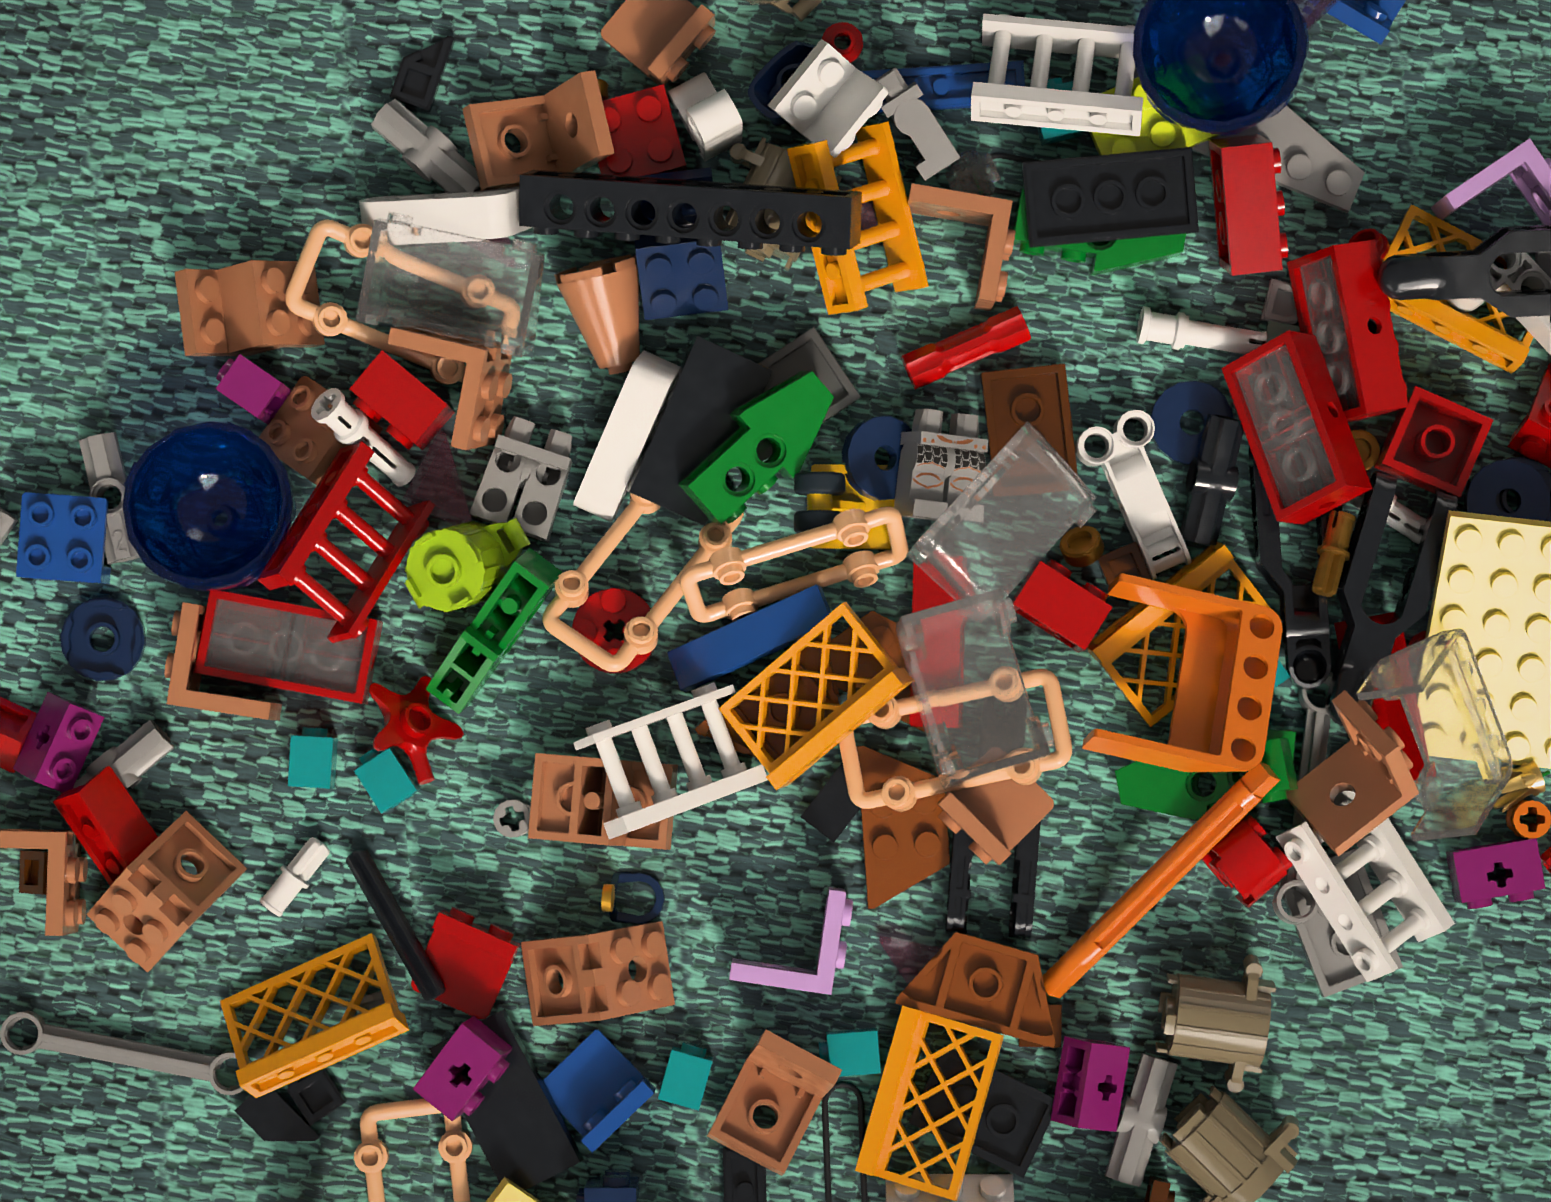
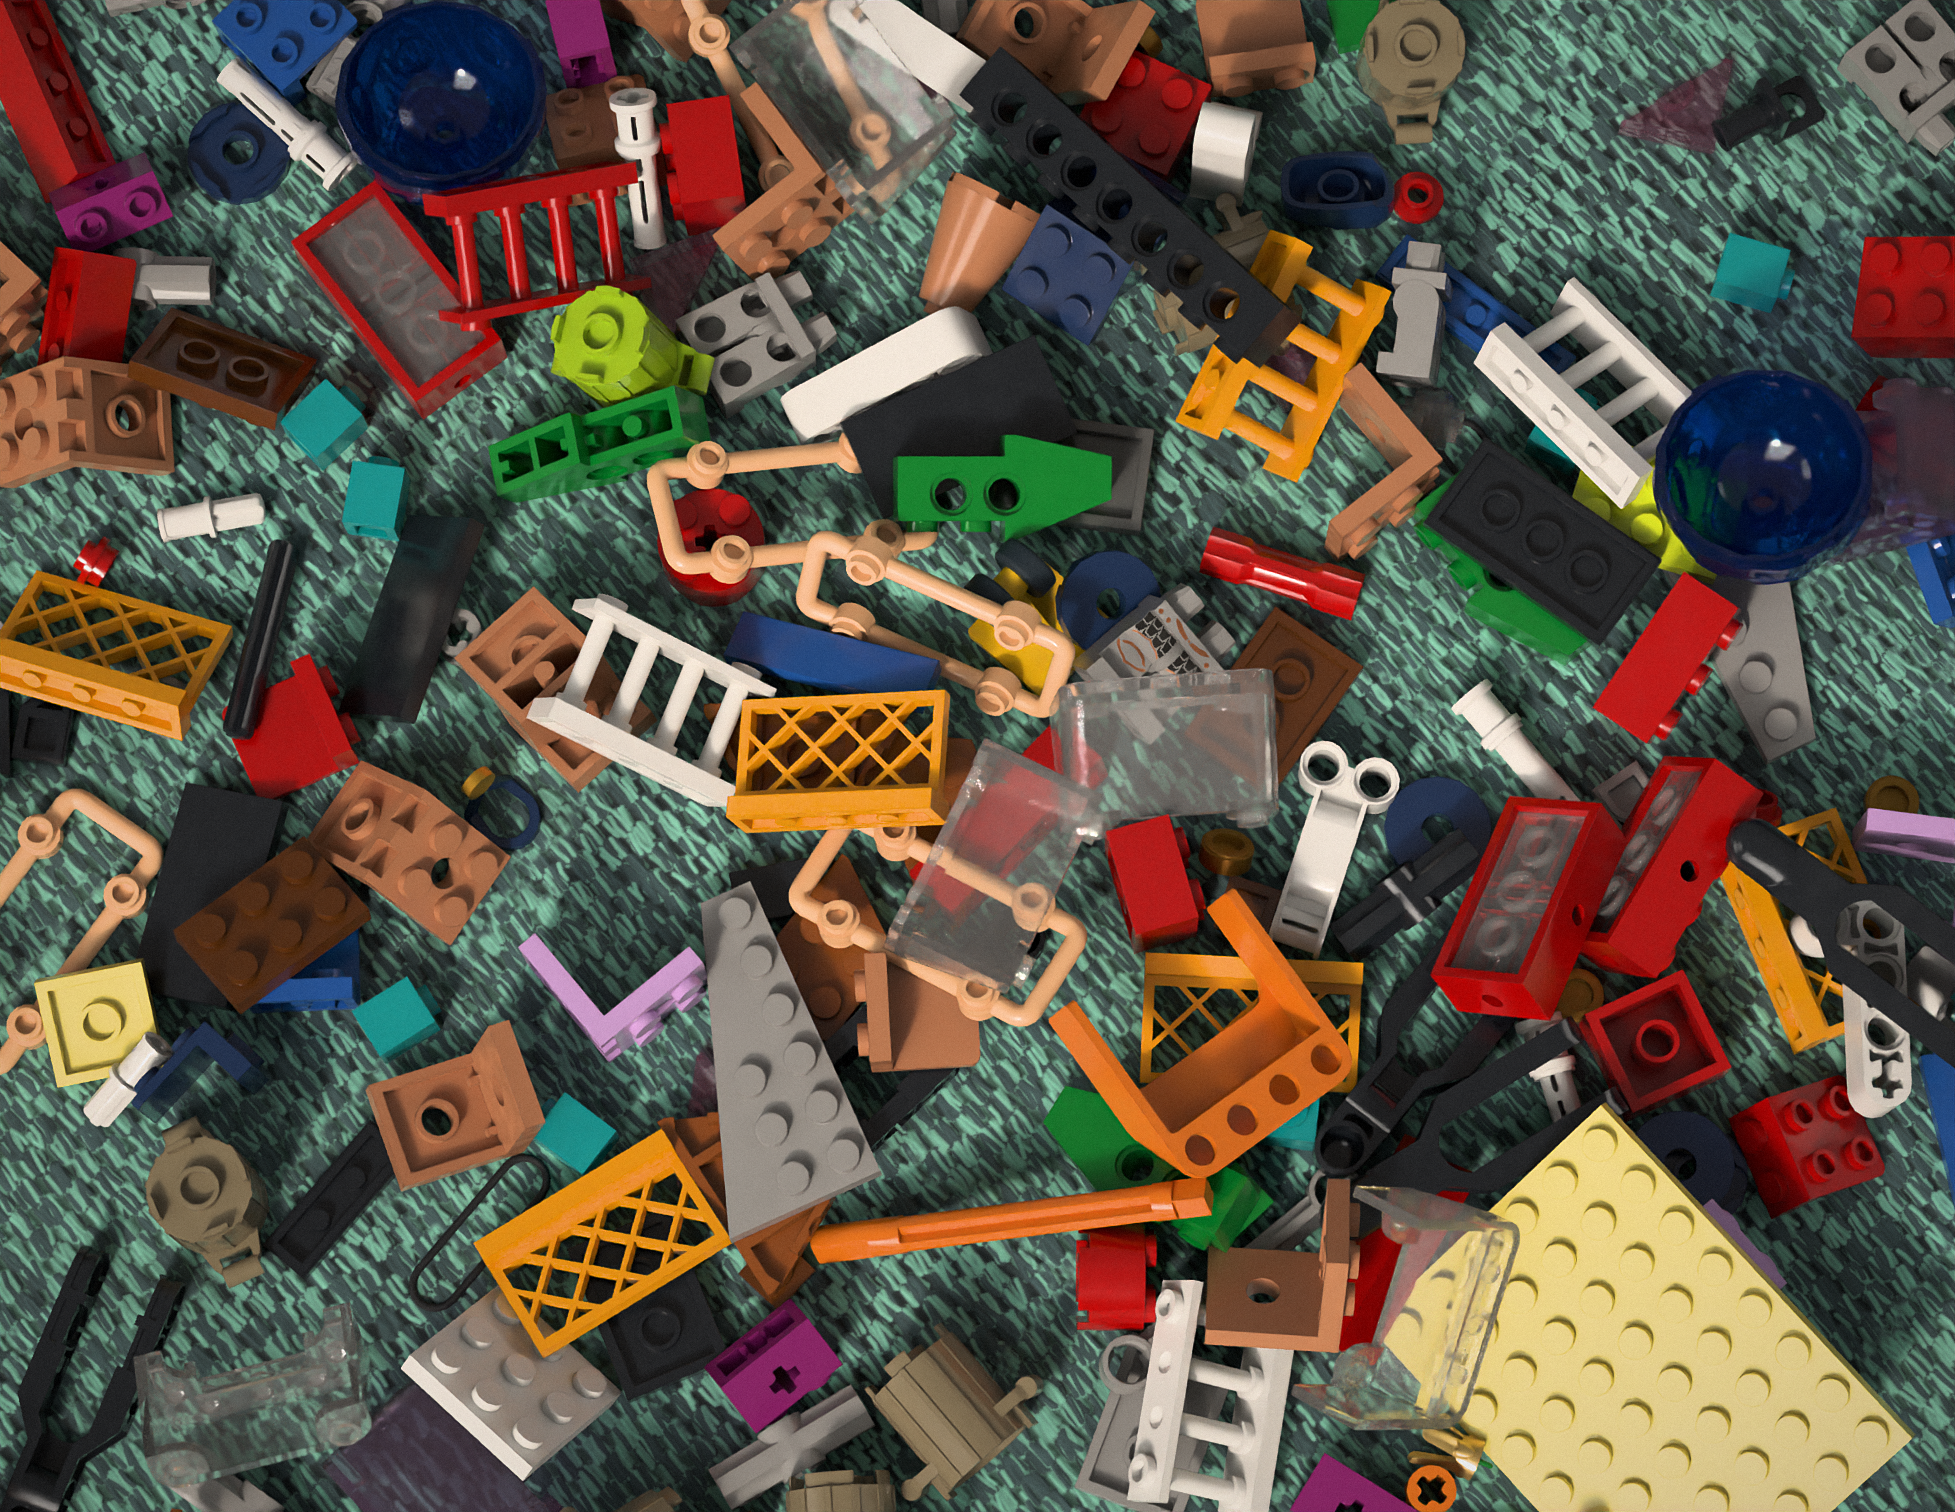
camera: 45 degrees right, 10 degrees down
(140, 596) = (305, 138): none -> white pin
(185, 683) = (272, 255): nougat bracket -> none
(221, 783) = (222, 368): none -> reddish brown plate
(251, 965) = (95, 561): none -> red plate
(411, 725) = (443, 468): red animal -> none
(443, 1080) = (173, 813): magenta brick -> none
(477, 835) = (411, 618): none -> black tile
(566, 1091) = (272, 924): none -> reddish brown plate
(828, 98) = (1351, 219): white bracket -> none
(958, 928) = (779, 1099): none -> light grey wing
(1333, 553) = (1461, 1055): pearl gold axle -> none
(1440, 172) = (1892, 794): none -> pearl gold tile

